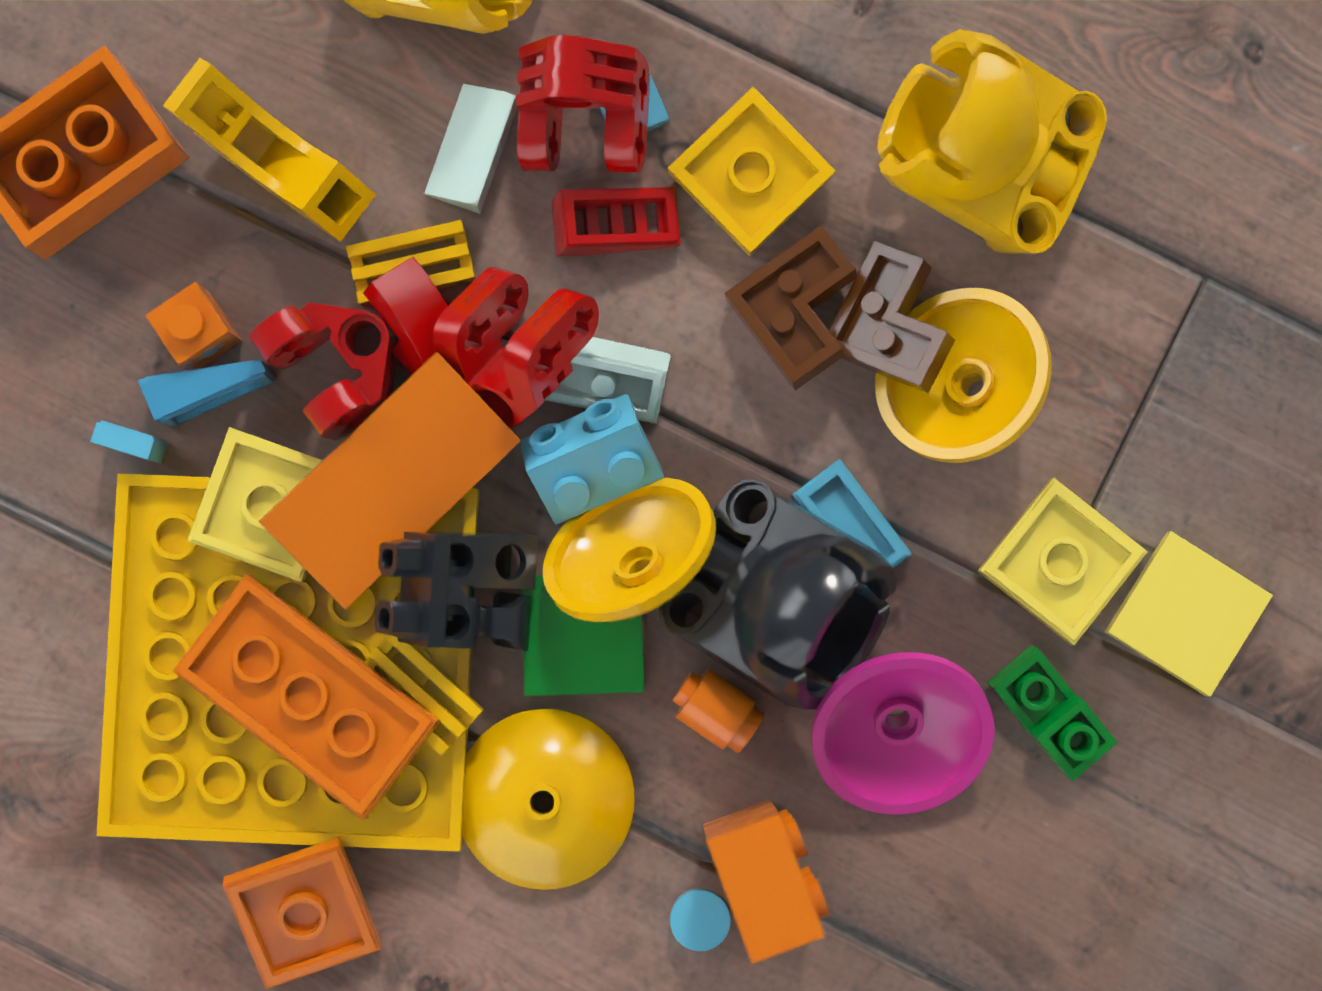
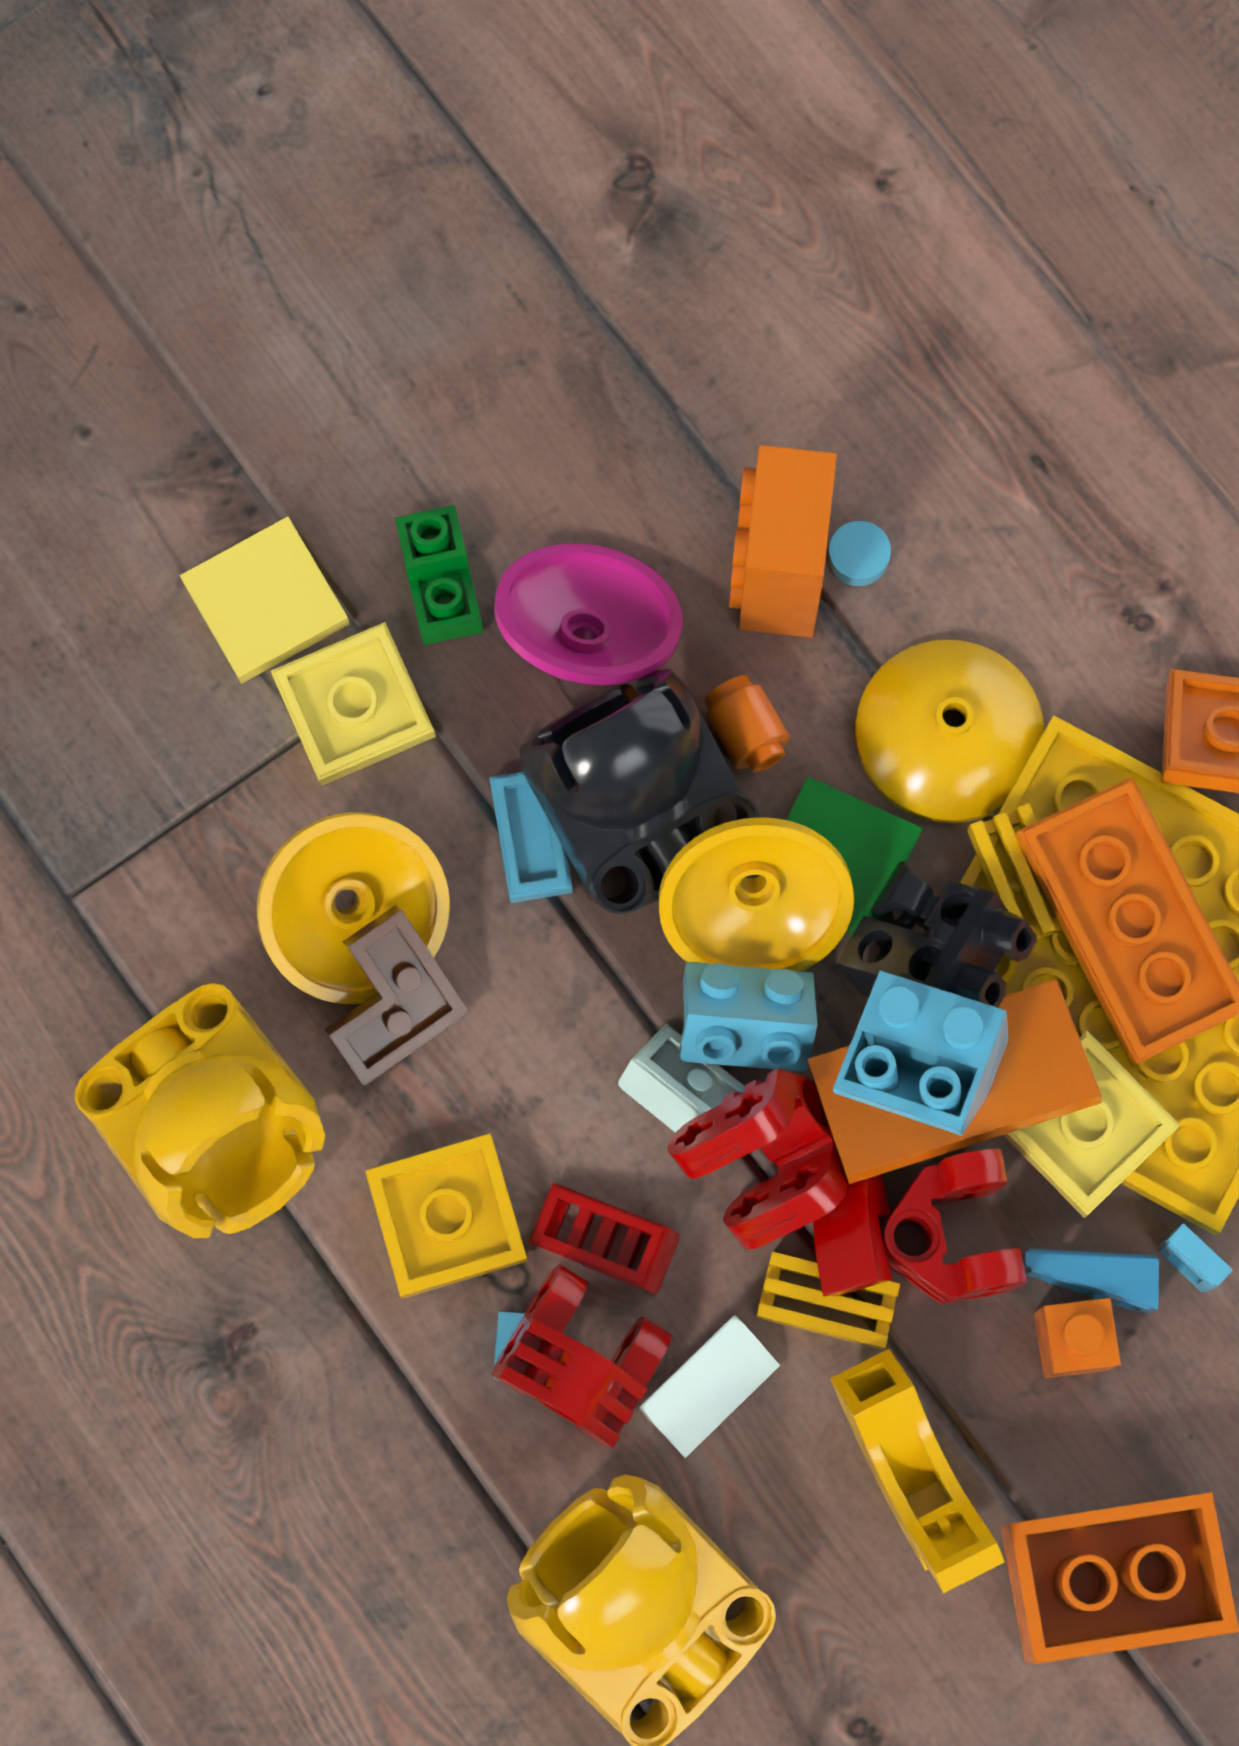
camera: 150 degrees left, 10 degrees down
(420, 471) = (923, 1053): none -> medium azure slope
(780, 300) = (488, 1073): reddish brown plate -> none

